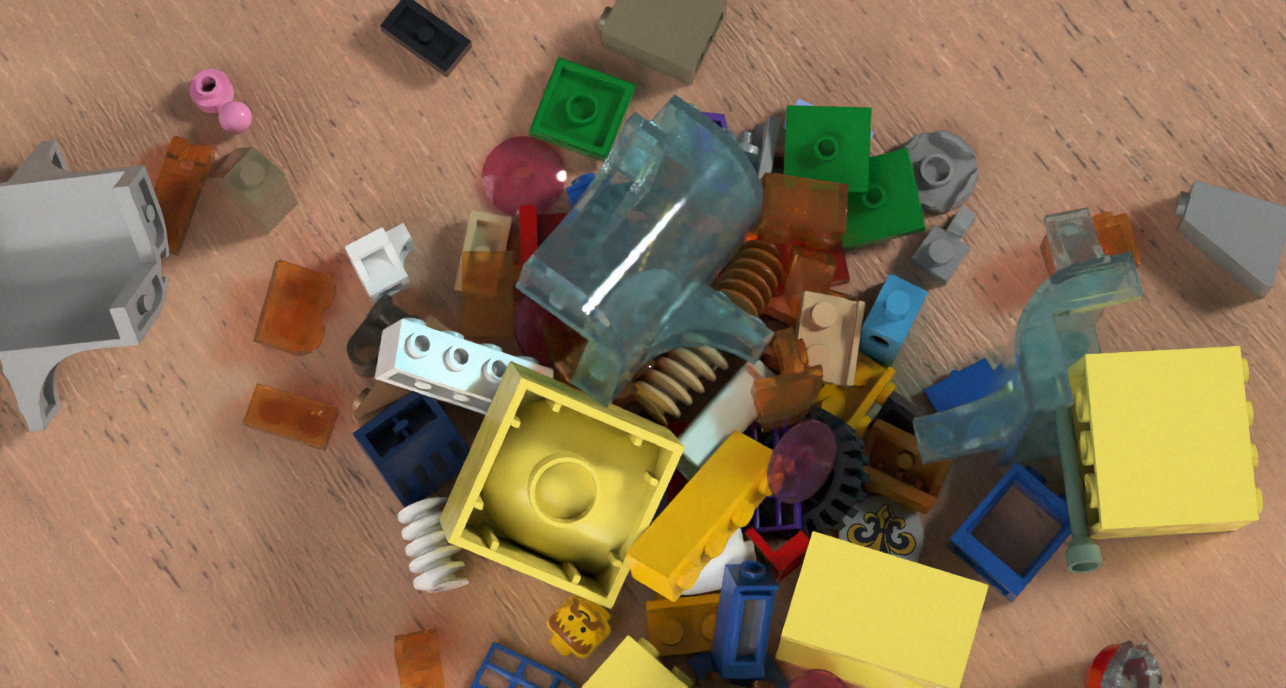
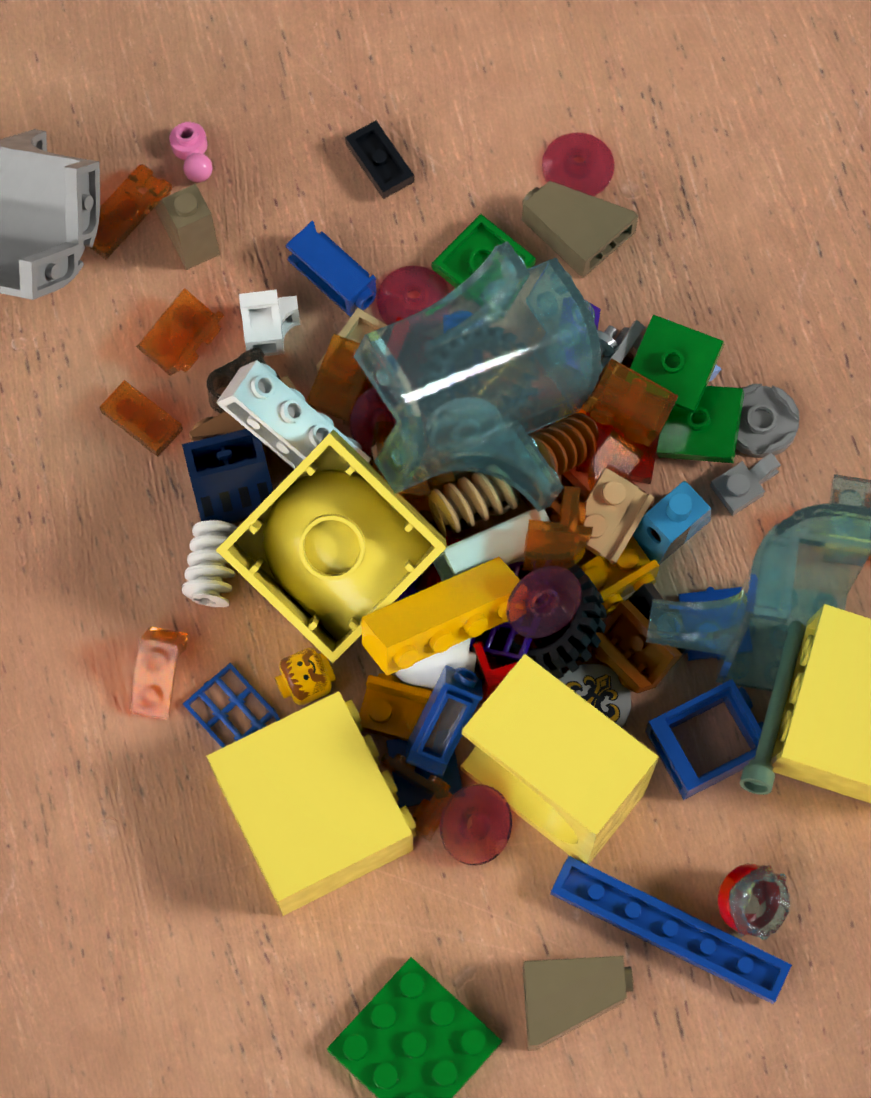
camera: 20 degrees right, 5 degrees down
(426, 178) = (331, 270): none -> blue window

